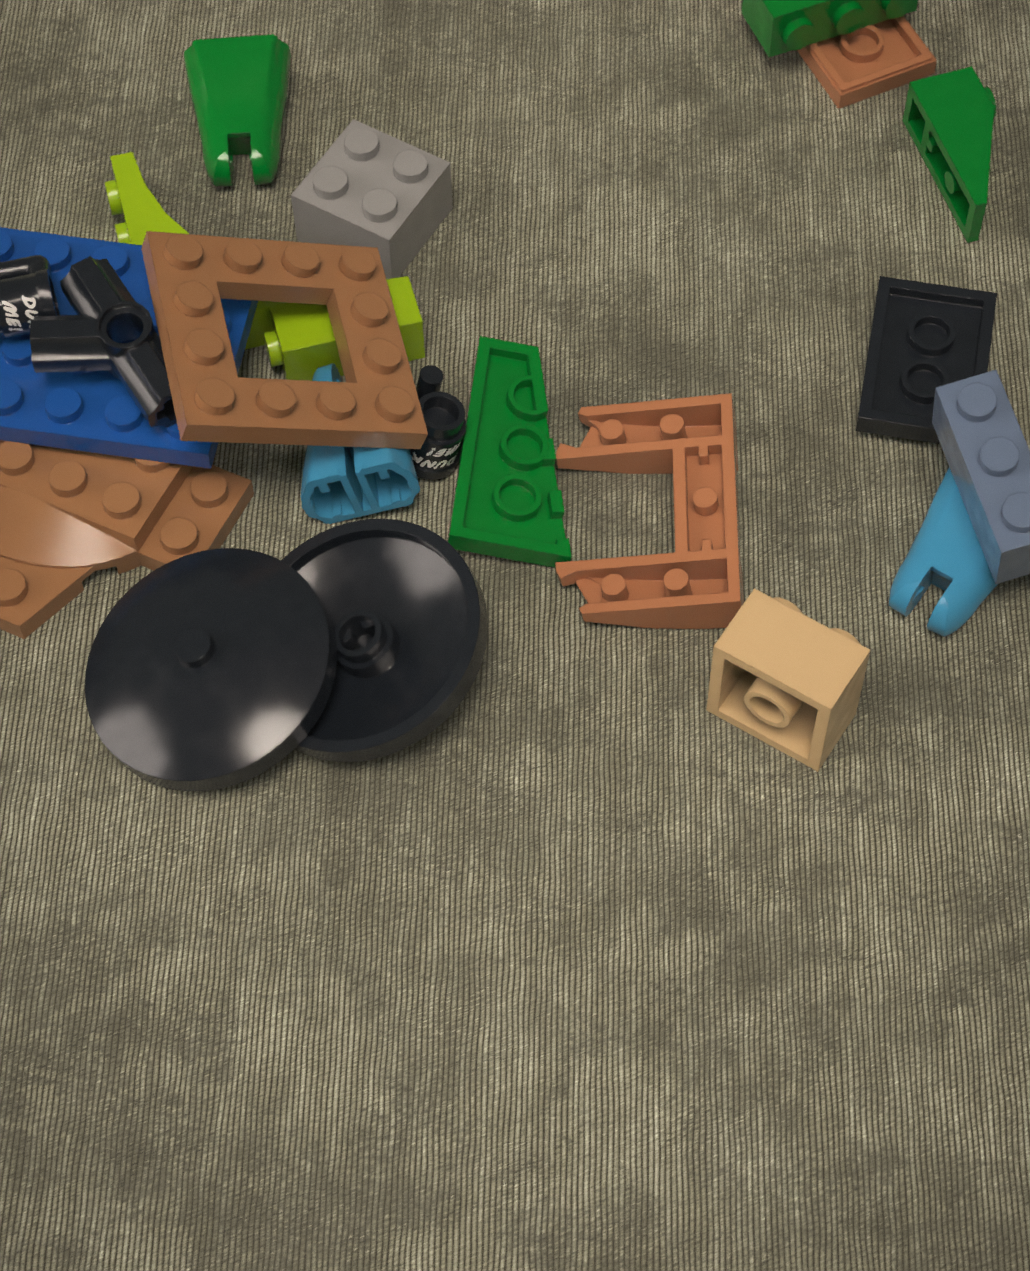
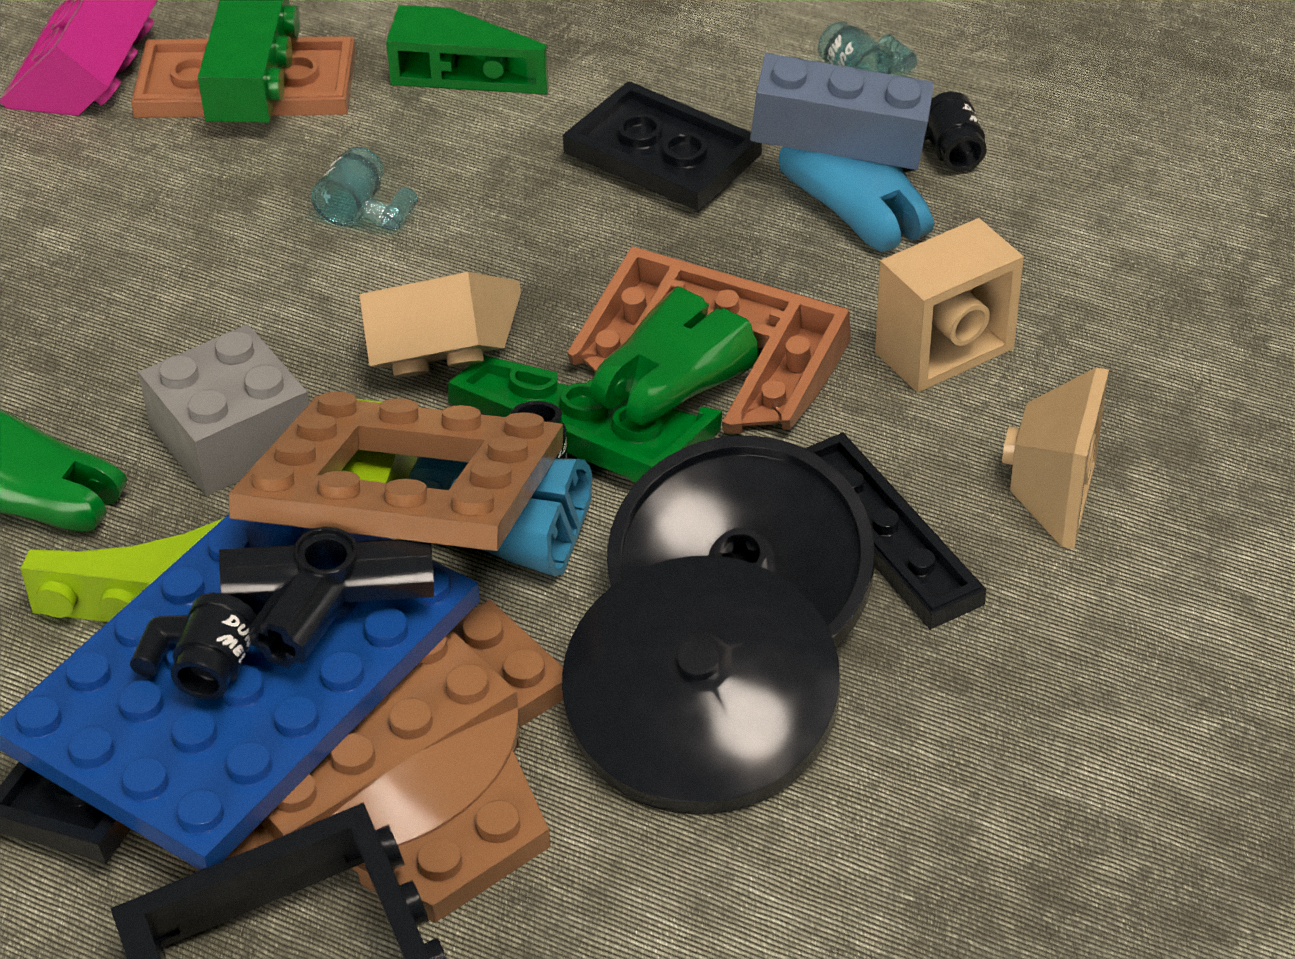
camera: 65 degrees left, 15 degrees down
(494, 748) = (904, 545): none -> black tile
(549, 295) = (438, 321): none -> tan slope
(590, 485) = (674, 357): none -> green piece
(626, 857) = (1058, 453): none -> tan slope
(713, 154) = (349, 188): none -> clear light blue piece

